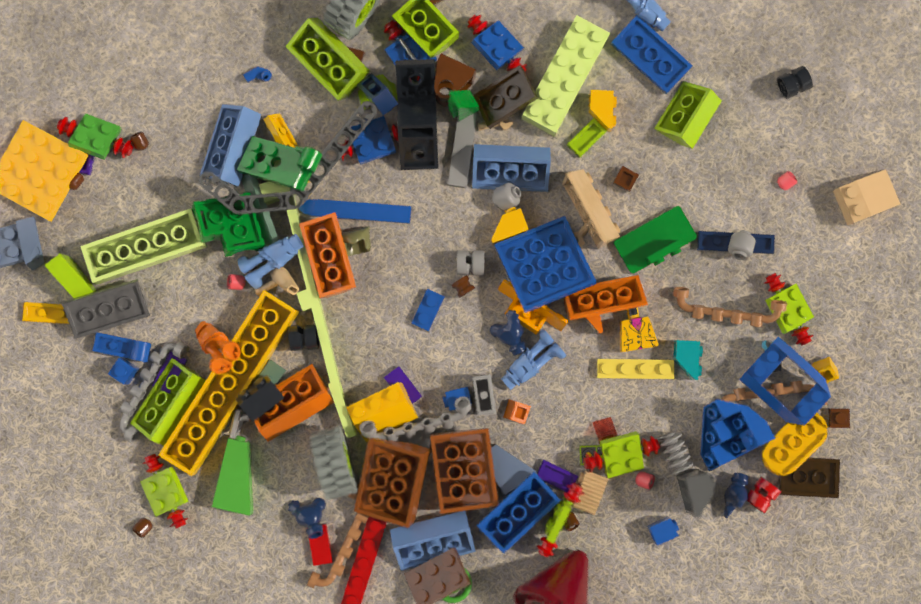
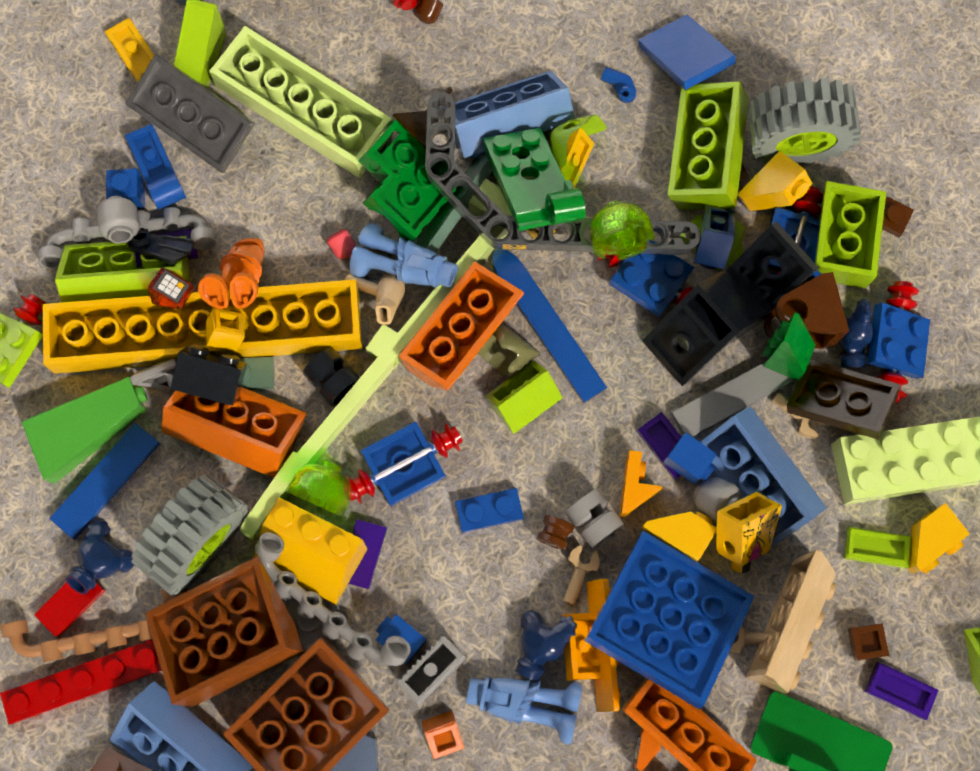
camera: 50 degrees right, 10 degrees down
(140, 386) = (118, 219): none -> light grey head
(171, 374) = (162, 248): none -> black piece
(200, 386) = (169, 289): none -> slope
(203, 197) = (416, 122): none -> dark brown piece
(242, 373) = (225, 329): none -> yellow slope
(265, 128) = (560, 135): none -> lime piece
(268, 28) = (686, 52): none -> blue tile
(271, 486) = (104, 481): none -> blue tile
(341, 141) = (620, 230): none -> clear neon green cylinder
(356, 382) = (322, 486): none -> clear neon green cylinder
(373, 41) = (776, 184): none -> yellow slope
(373, 334) = (404, 463): none -> blue plate
(385, 250) = (524, 396): none -> lime brick
(462, 198) = (660, 438): none -> dark purple tile
(472, 234) = (635, 493): none -> light orange slope
(478, 194) = (691, 459): none -> blue brick
(480, 63) = (858, 337): none -> dark blue animal
(490, 289) = (579, 573): none -> tan bar
(531, 194) = (746, 530): none -> yellow torso
(658, 181) = (901, 691): none -> dark purple tile

